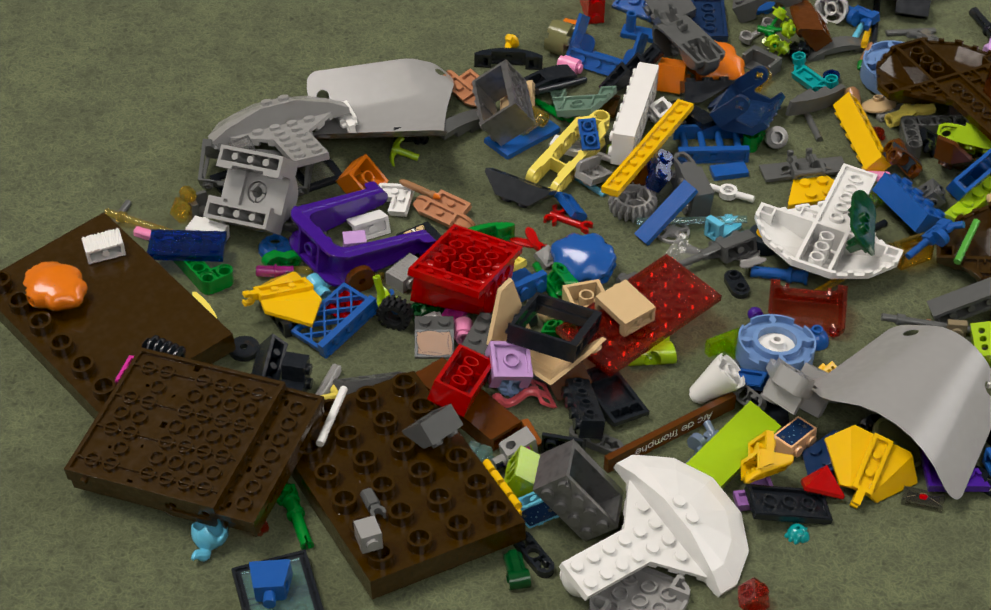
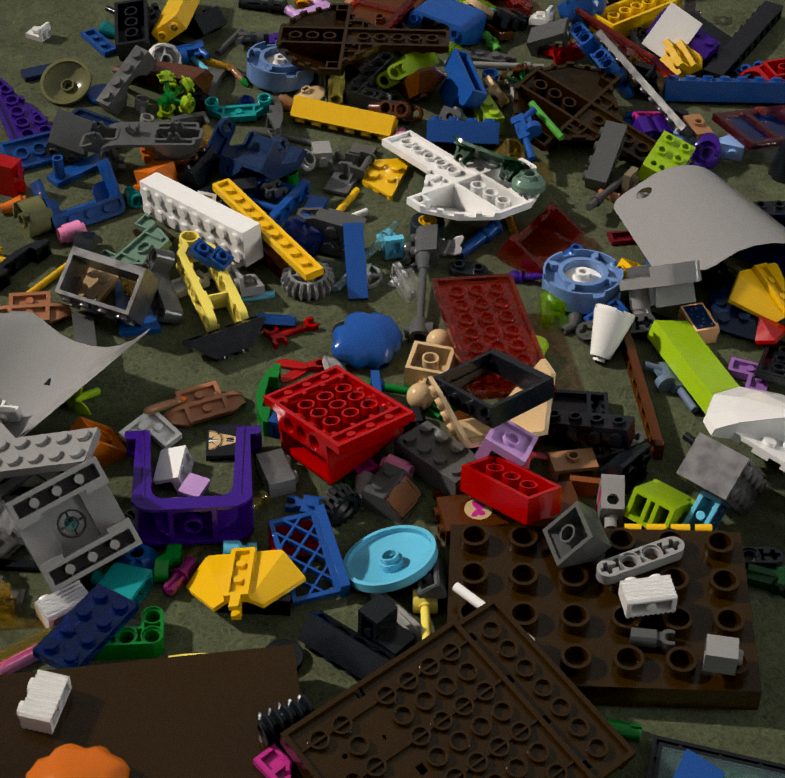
camera: 60 degrees left, 0 degrees up
(243, 250) = (126, 580): none -> teal torso
(360, 278) = (261, 510): reddish brown piece -> none
(364, 358) = (390, 558): none -> medium azure dish
(382, 292) = (300, 503): lime plant -> none
(401, 481) = (647, 595): none -> white brick
(458, 480) = (638, 557): none -> light grey beam
(543, 133) = (165, 302): none -> dark grey beam
(546, 418) = (572, 462): none -> medium nougat brick
(560, 276) = (383, 366): green piece -> none
(561, 85) = (98, 243): black bar -> none
(621, 74) = (130, 198): black slope -> none
(626, 307) = (490, 331): tan panel -> none
(716, 134) = (271, 190): none -> dark grey piece
(757, 185) = (348, 200): none -> yellow bar
(762, 459) = (737, 347): yellow piece -> none
(799, 143) = (322, 153): none -> light grey brick
(855, 265) = (528, 182): none -> sand green piece

